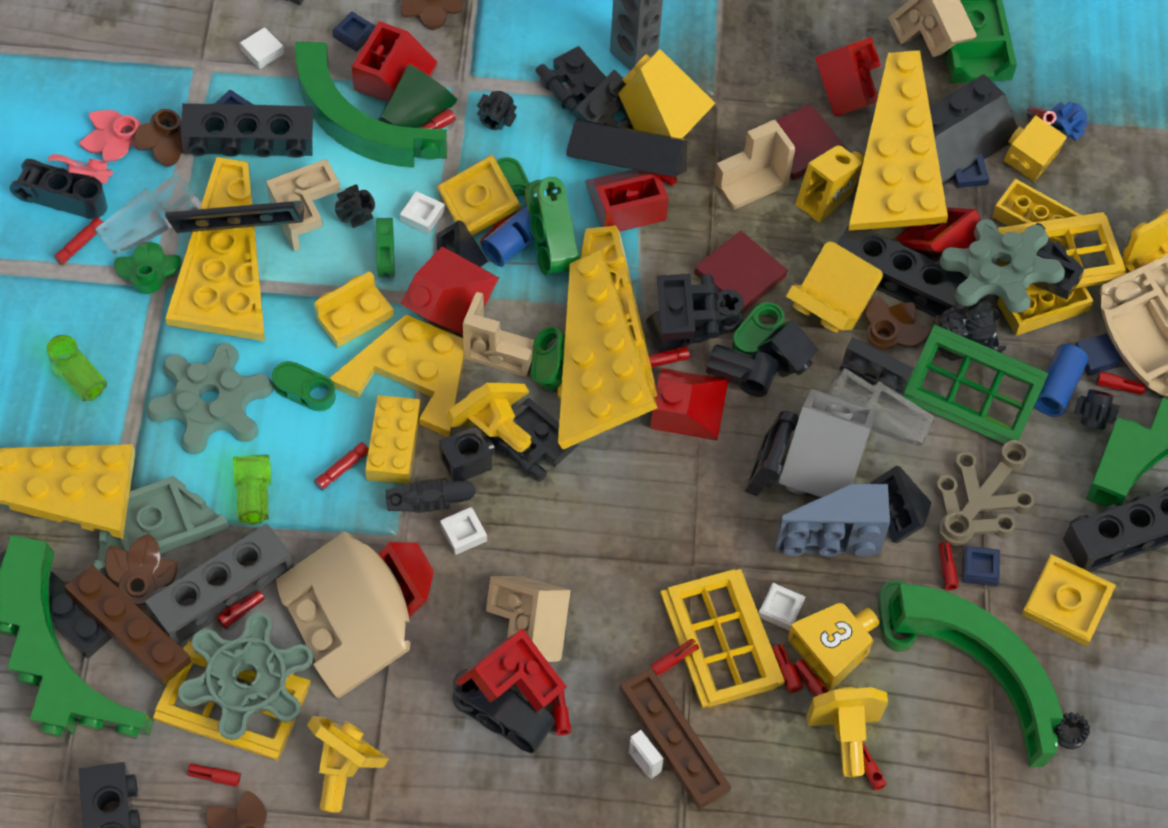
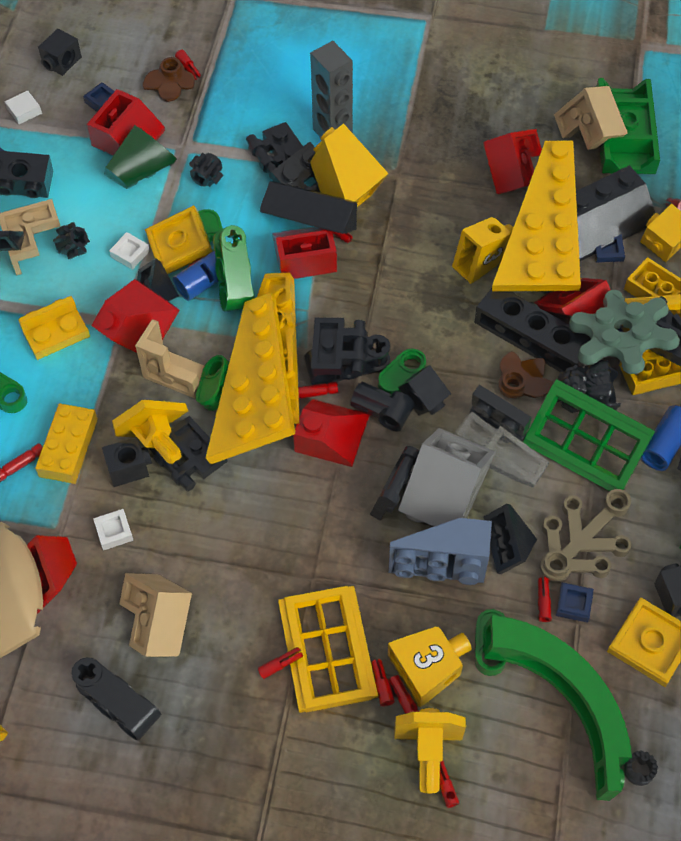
camera: 10 degrees right, 0 degrees up
(353, 128) = (85, 178): green arch -> none
(385, 246) = (91, 277): green piece -> none
(414, 357) = (99, 372): yellow wing -> none
(428, 495) = (87, 495): black hinge -> none
(441, 120) = (154, 178): red pin -> none
(516, 662) = (131, 657): red panel -> none
(561, 716) = (169, 704): red pin -> none
(645, 754) = (237, 753): white tile -> none
(675, 738) = (268, 740): reddish brown plate -> none
(743, 267) = (396, 318): dark red tile -> none
(758, 169) = (422, 233): tan panel -> none
(781, 606) = (386, 623): white tile -> none
(809, 136) = (460, 210): dark red tile -> none
(836, 288) = (475, 341): yellow bracket -> none

